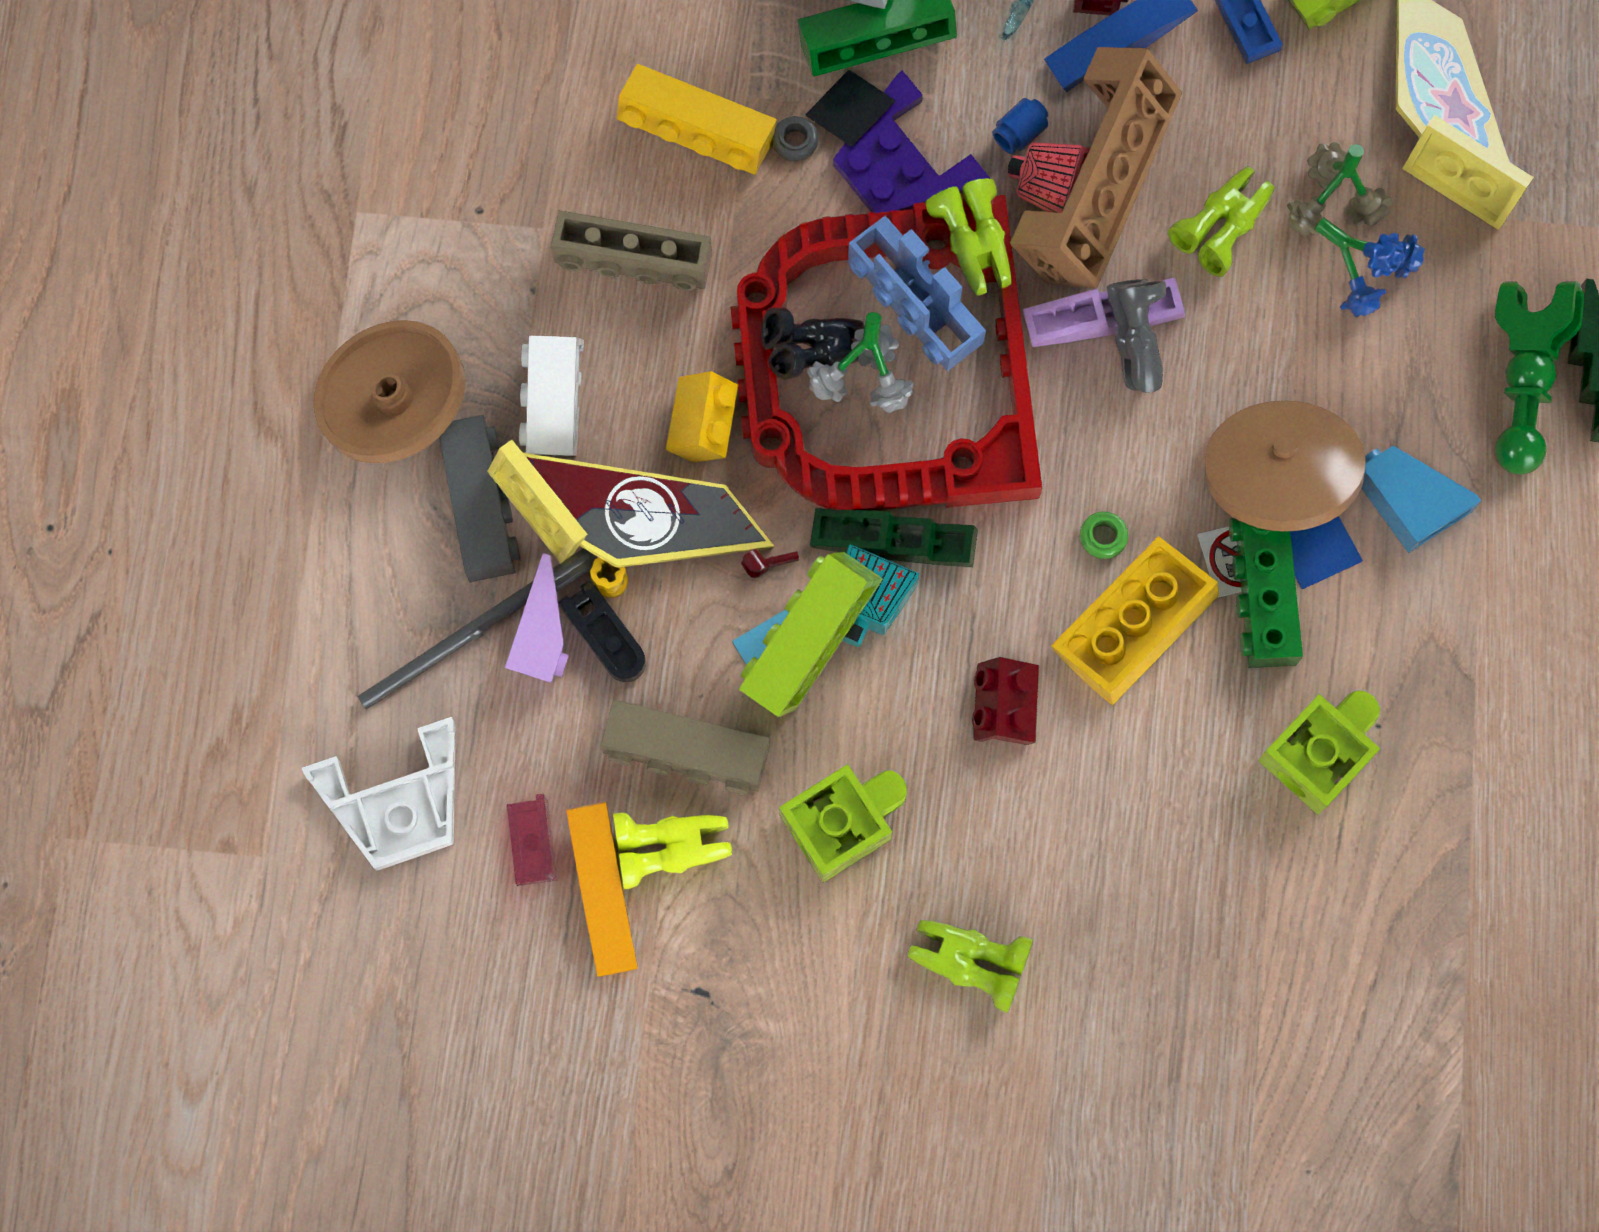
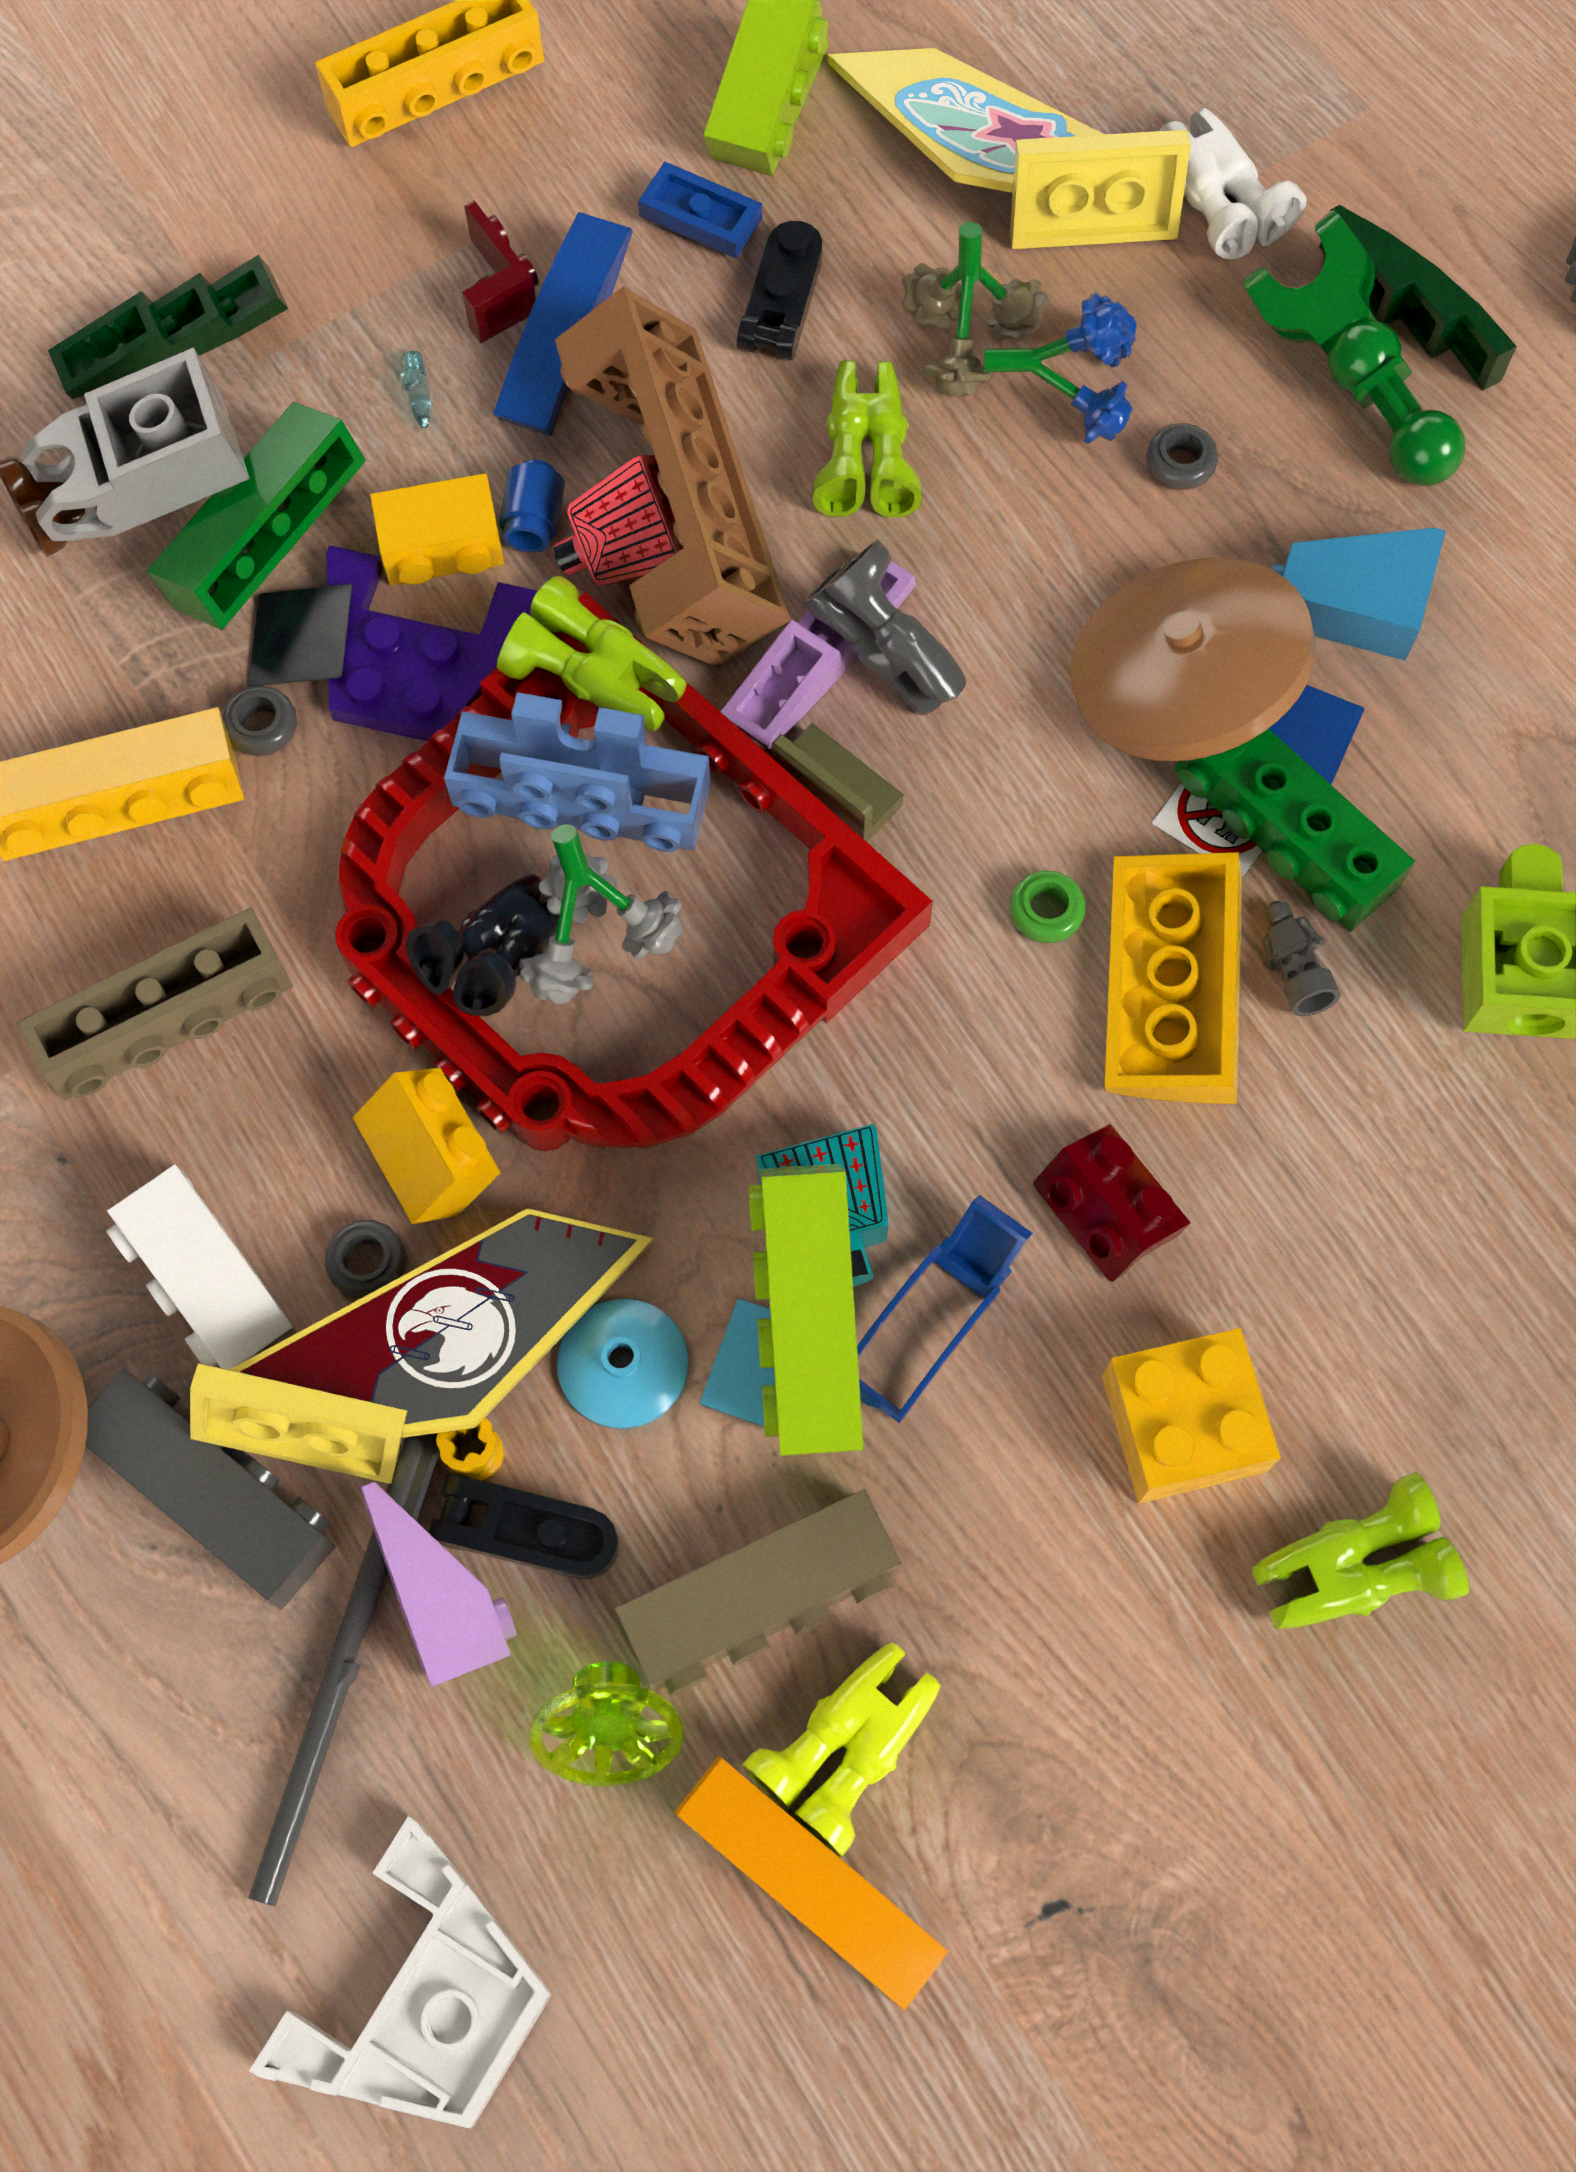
camera: 40 degrees left, 5 degrees down
(532, 841) = (658, 1897): clear pink panel -> none
(570, 745) = (605, 1719): none -> clear neon green wheel
(633, 434) = (355, 1235): none -> dark grey piece
(717, 611) = (629, 1394): none -> medium azure dish
(756, 565) = (650, 1280): dark red hand -> none
(845, 821) = (1047, 1516): lime brick -> none
(894, 537) = (796, 1107): dark green slope -> none
(919, 674) = (979, 1257): none -> blue piece
(951, 828) = (1190, 1415): none -> yellow brick
(962, 103) = (437, 529): none -> yellow brick
(1053, 390) = (838, 780): none -> olive panel
(1207, 651) = (1292, 947): none -> dark grey piece
(1255, 101) = (782, 290): none -> black plate
(1395, 341) = (1180, 475): none -> dark grey piece
(1556, 206) = (1222, 167): none -> white piece

